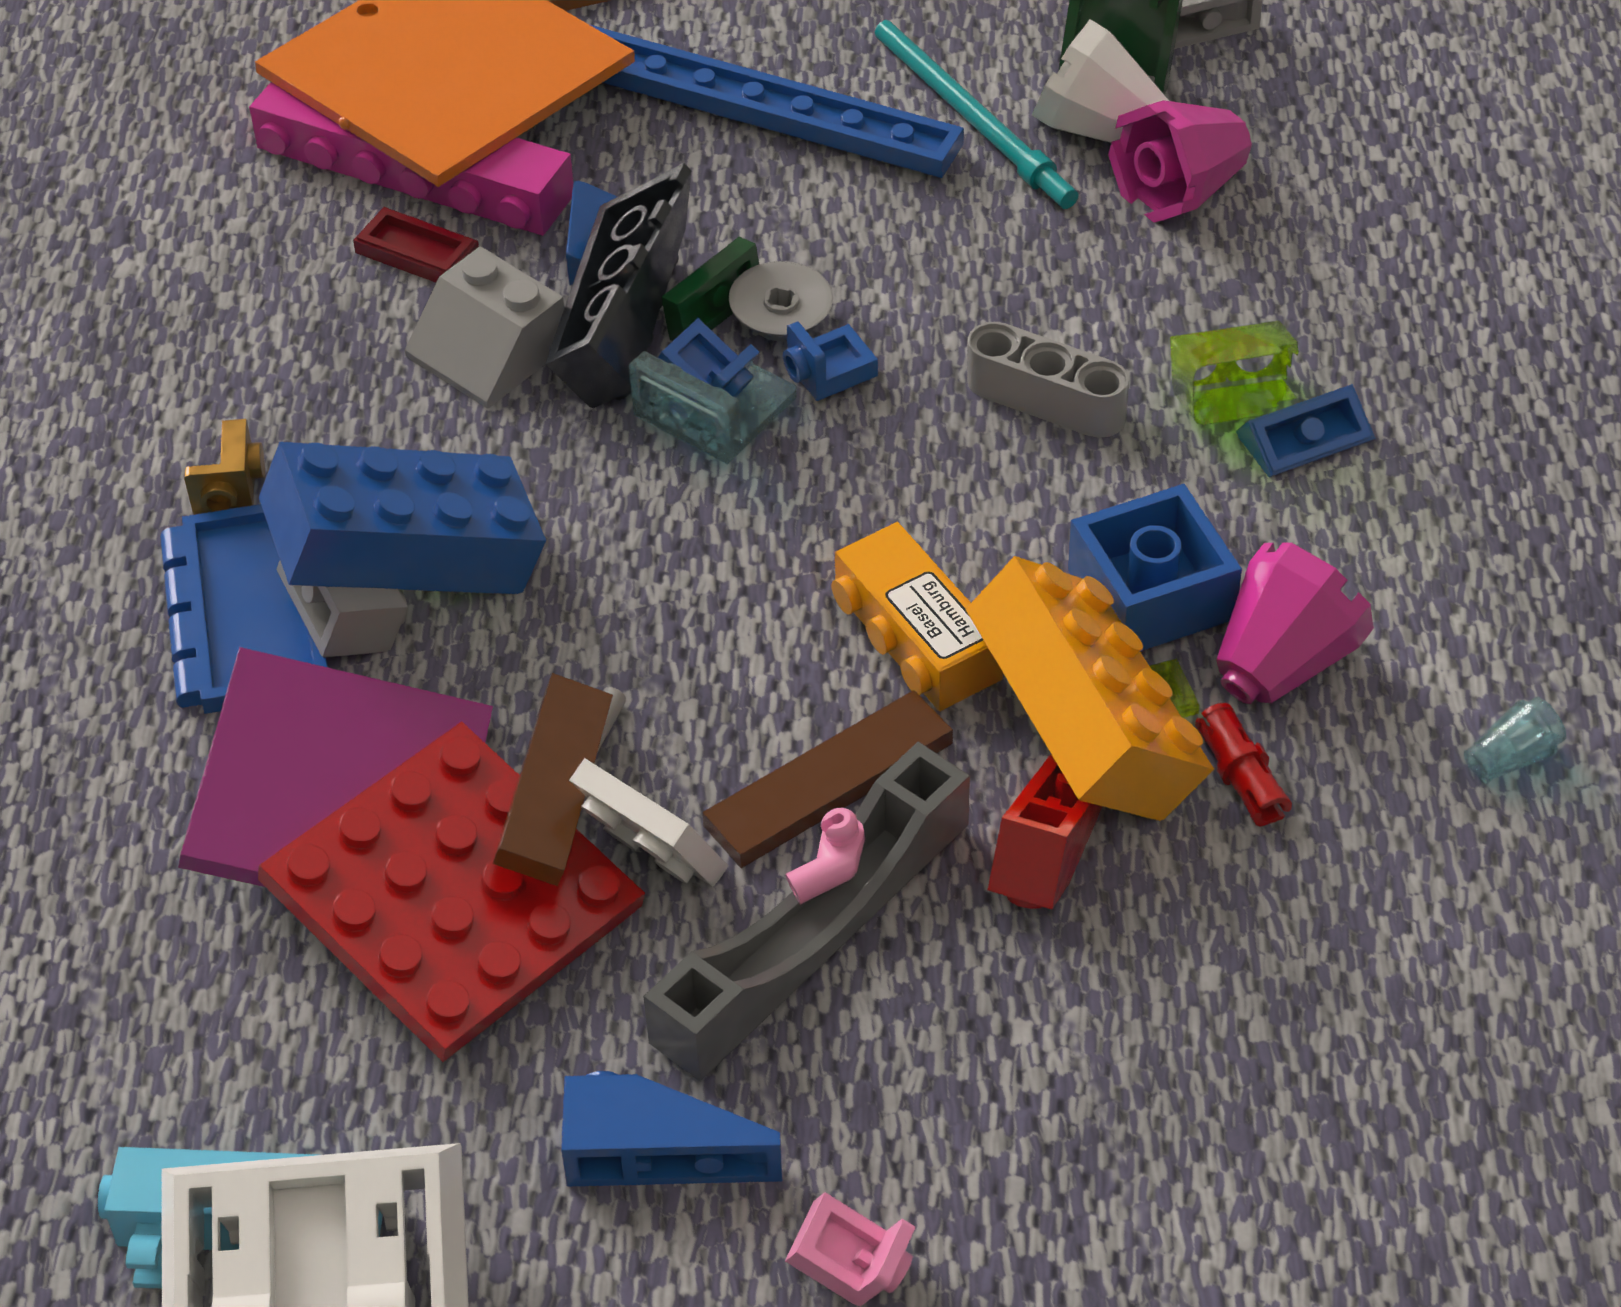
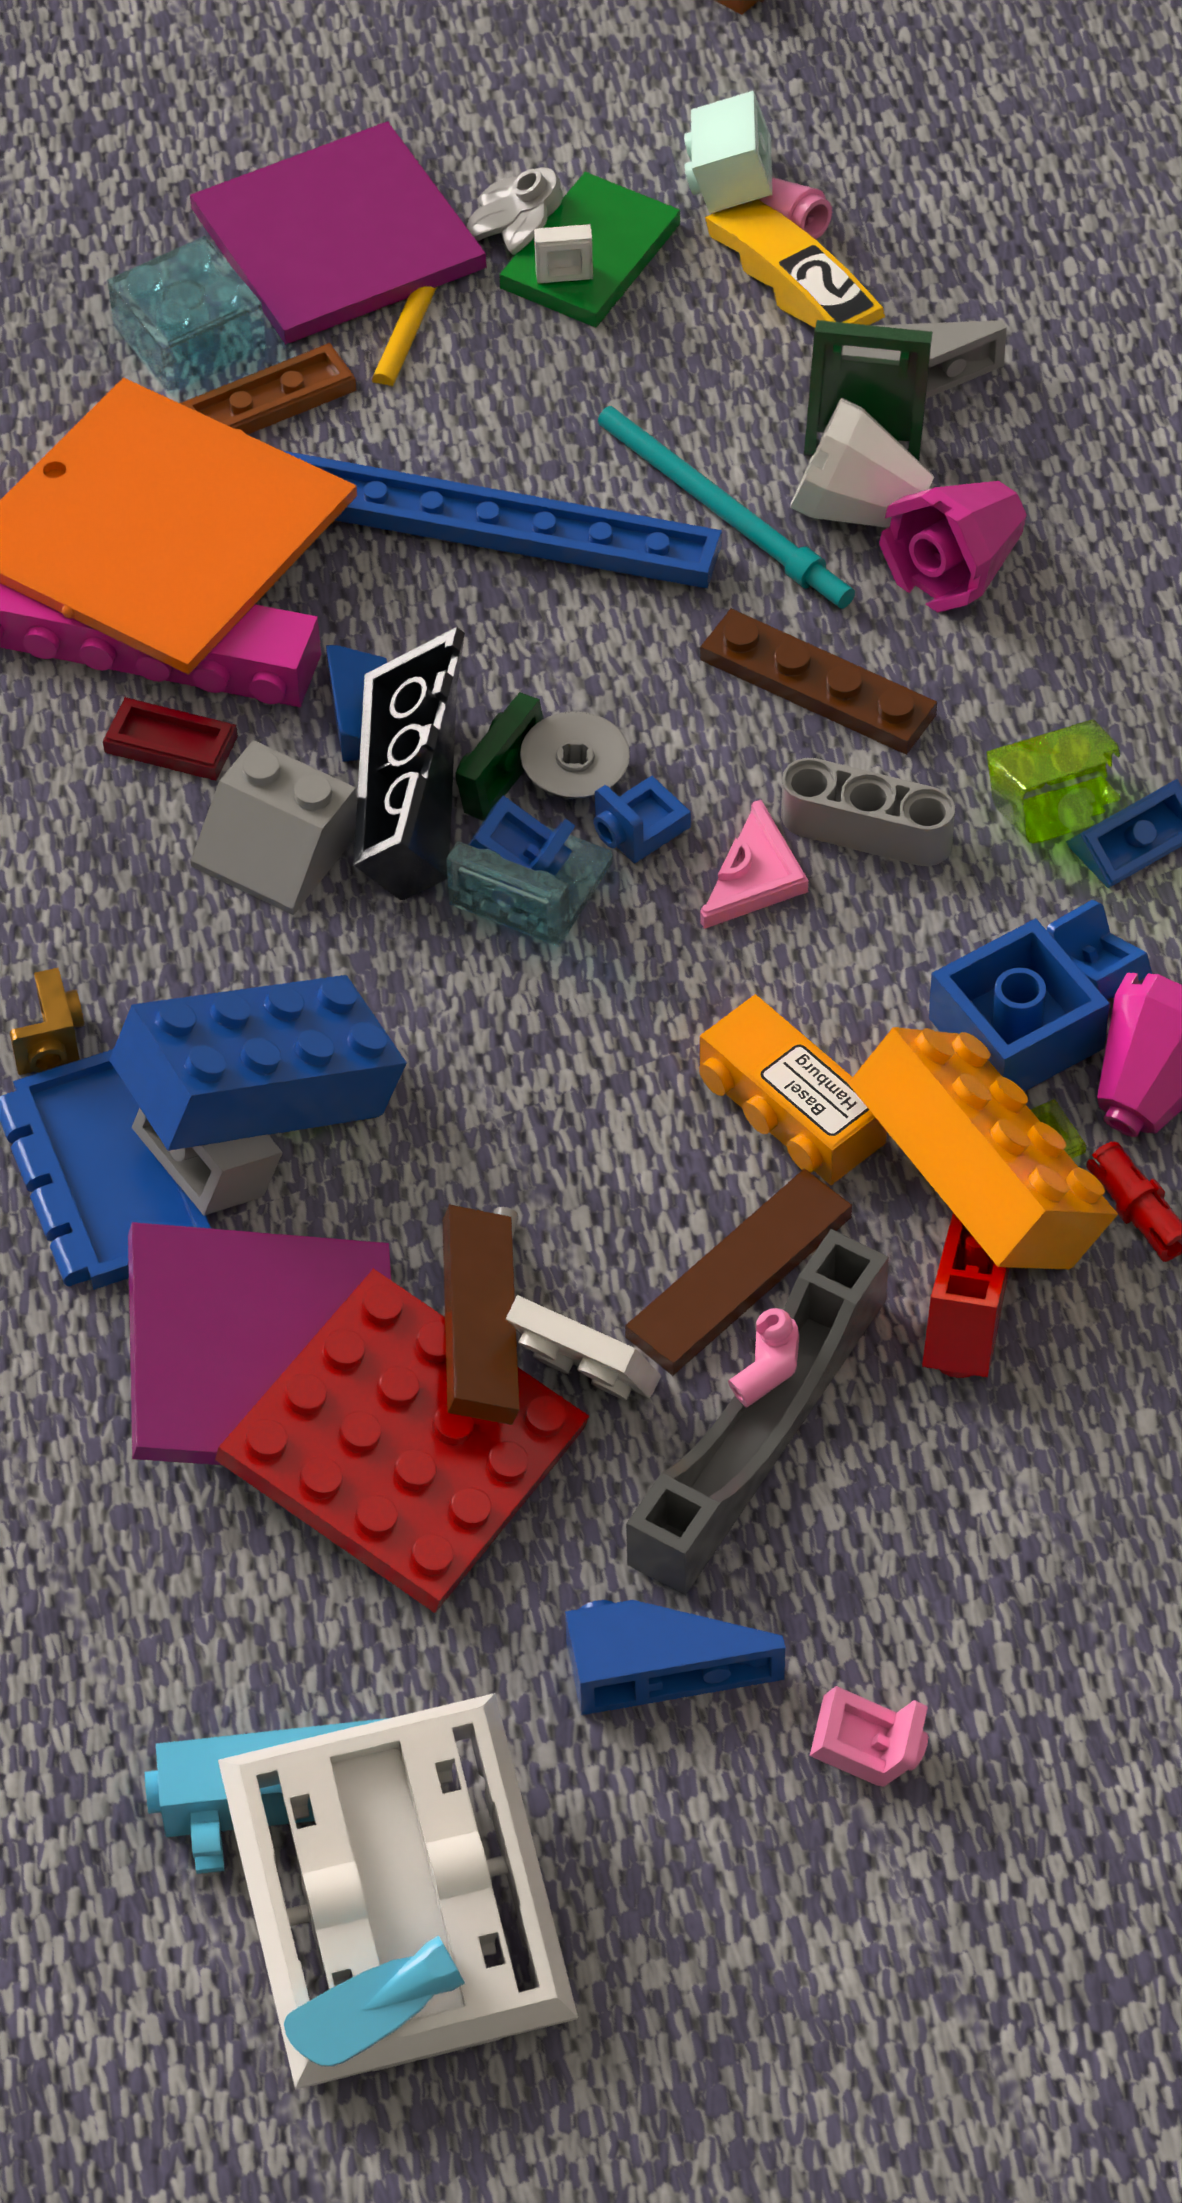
camera: 10 degrees left, 5 degrees up
(928, 423) = (755, 872): none -> bright pink tile
(1028, 266) = (818, 681): none -> reddish brown plate
(1239, 522) = (1095, 950): none -> blue bracket

